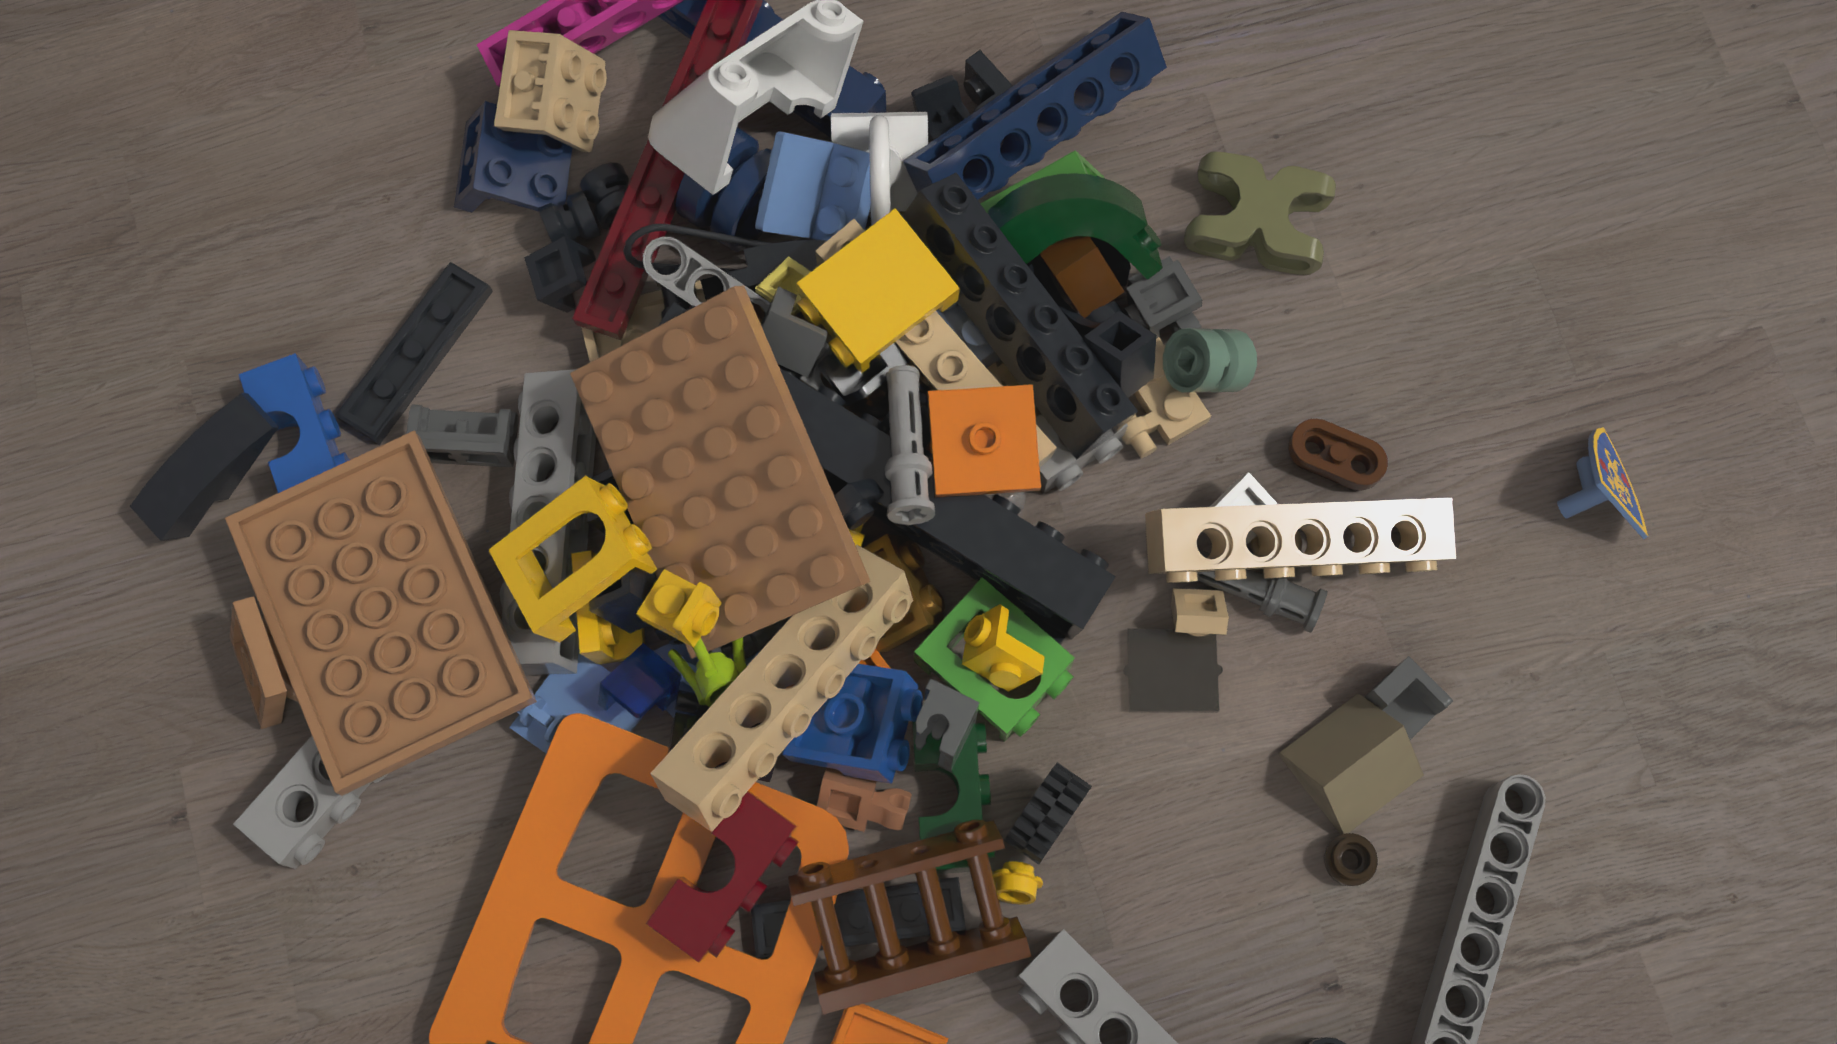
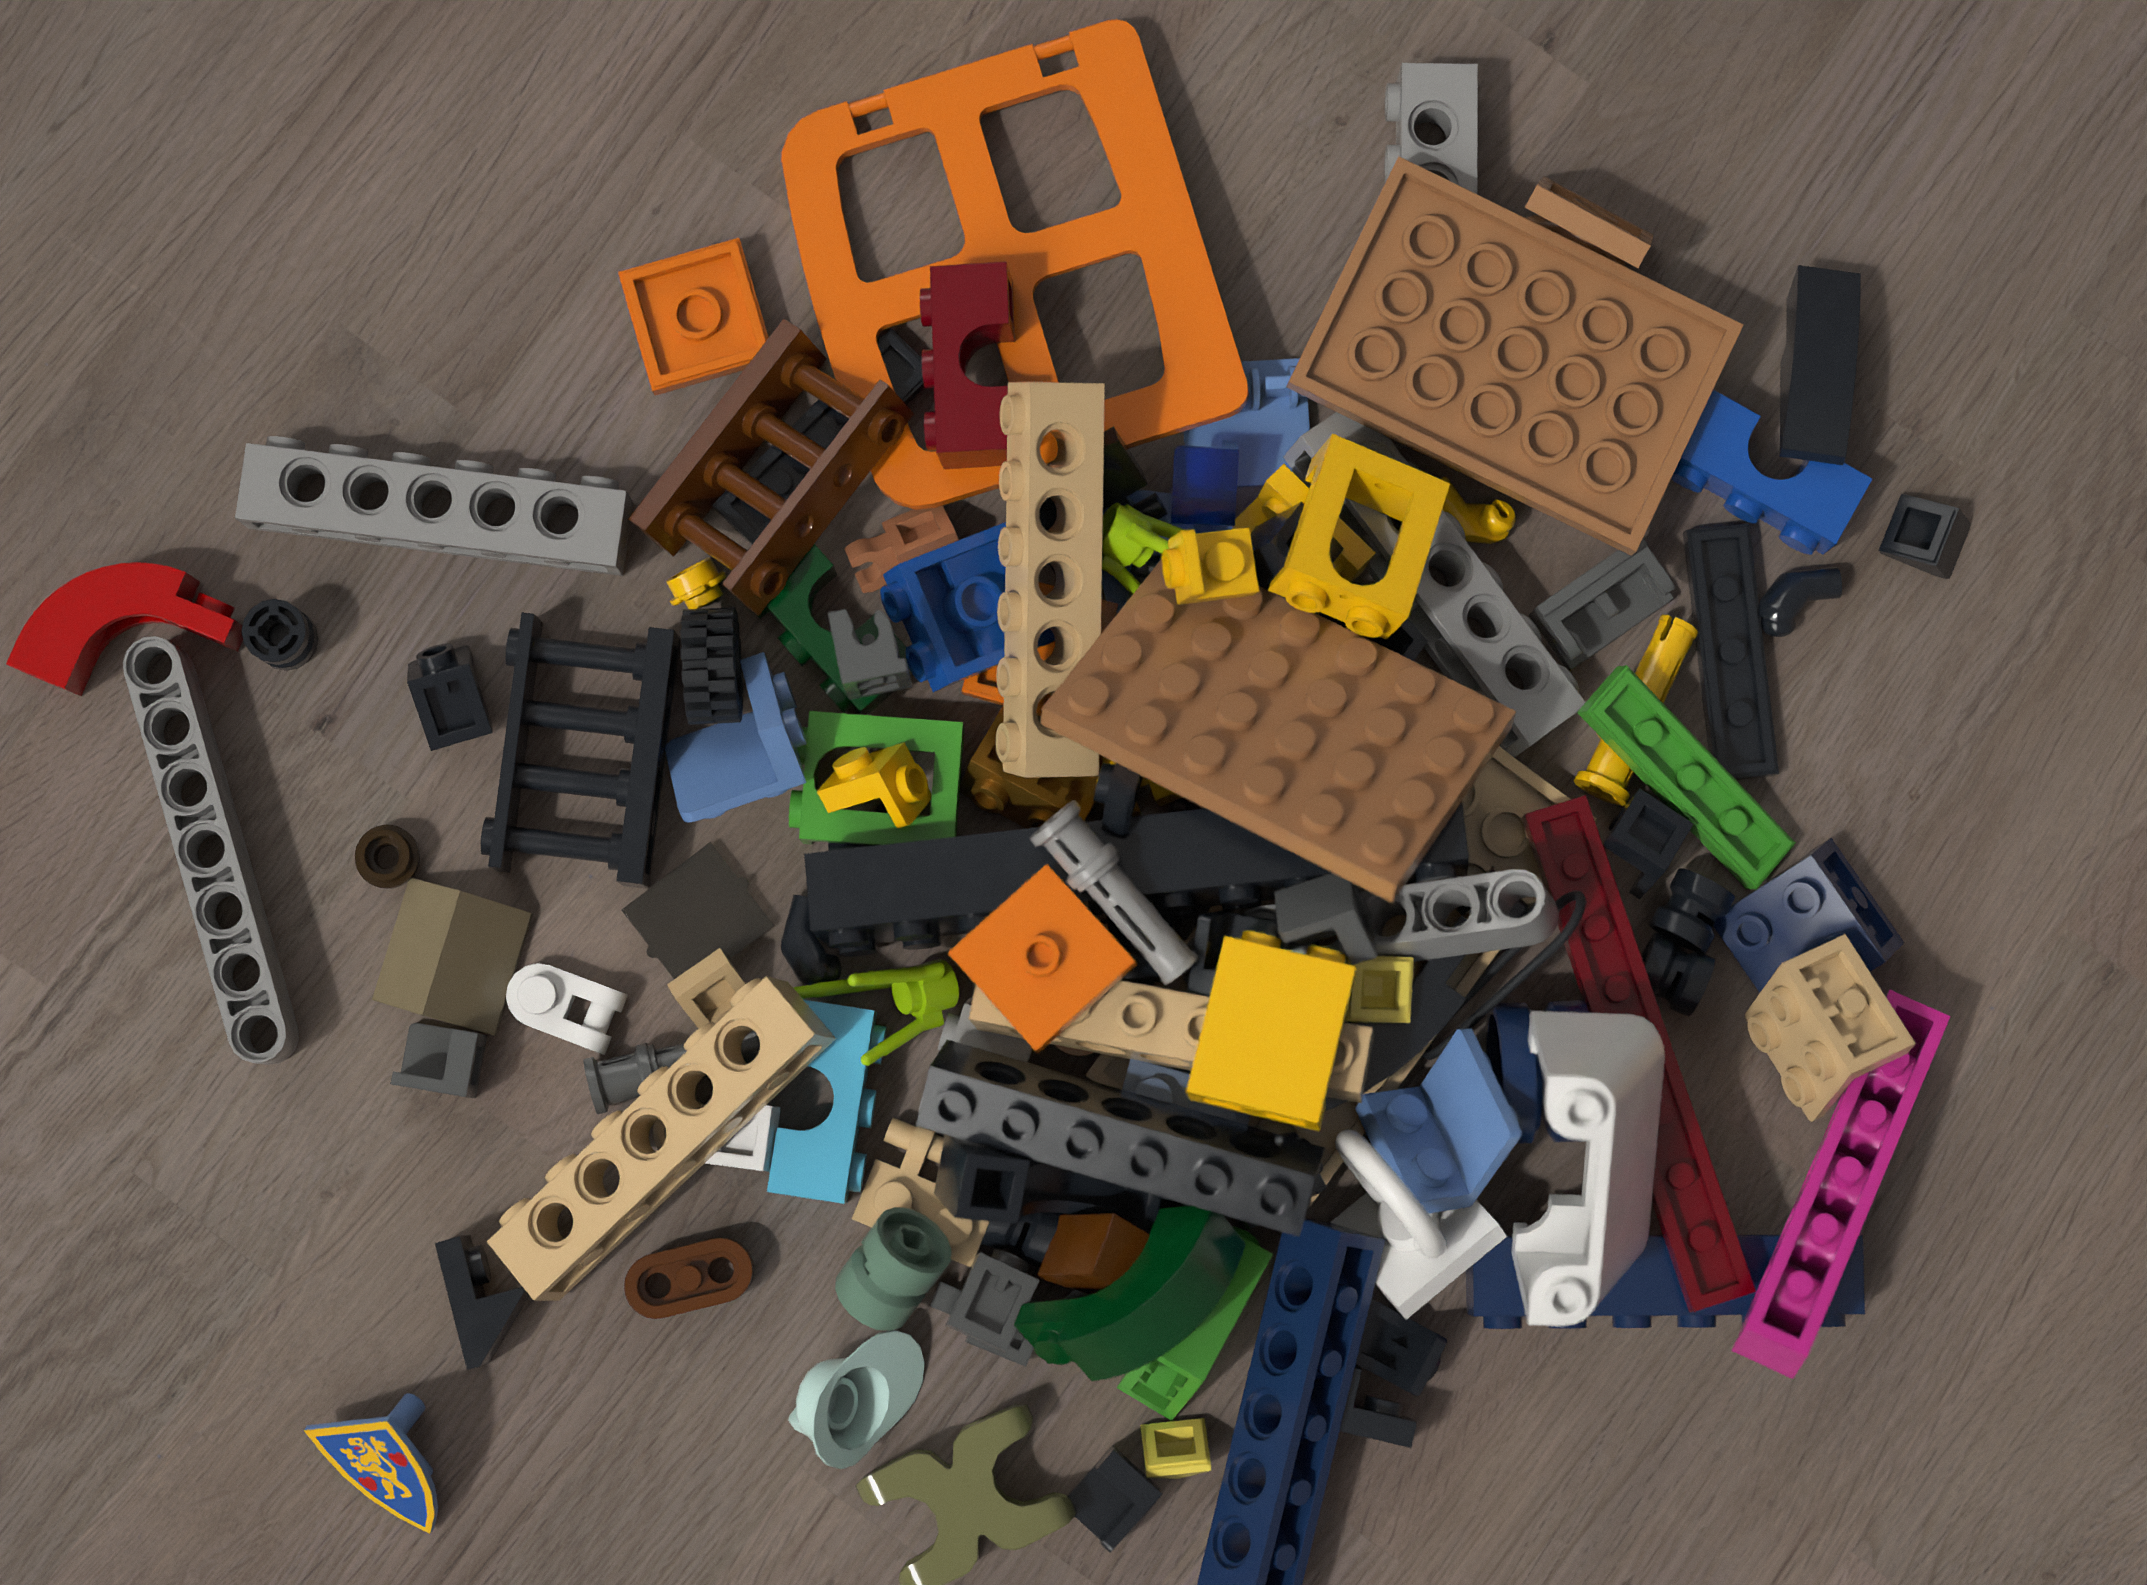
camera: 140 degrees right, 10 degrees up
(242, 334) = (1926, 535): none -> black slope
(349, 356) = (1790, 594): none -> black arm
(485, 535) = (1480, 521): none -> yellow arm
(504, 294) = (1686, 777): none -> bright green tile
(518, 346) = (1606, 772): none -> yellow pin
(1071, 517) = (916, 990): none -> lime plant
(1078, 733) = (742, 759): none -> medium blue bracket
(1114, 154) = (1175, 1449): none -> light yellow slope
(1120, 600) = (804, 950): none -> black arm
(1123, 816) = (632, 788): none -> black fence
(1170, 152) = (1113, 1498): none -> black panel
(1205, 462) = (824, 1159): none -> medium azure arch
(1236, 935) = (448, 696): none -> black bracket
(1288, 312) = (858, 1398): none -> light aqua piece
(1310, 693) = (543, 998): none -> white plate
(1485, 528) = (479, 1319): none -> black slope

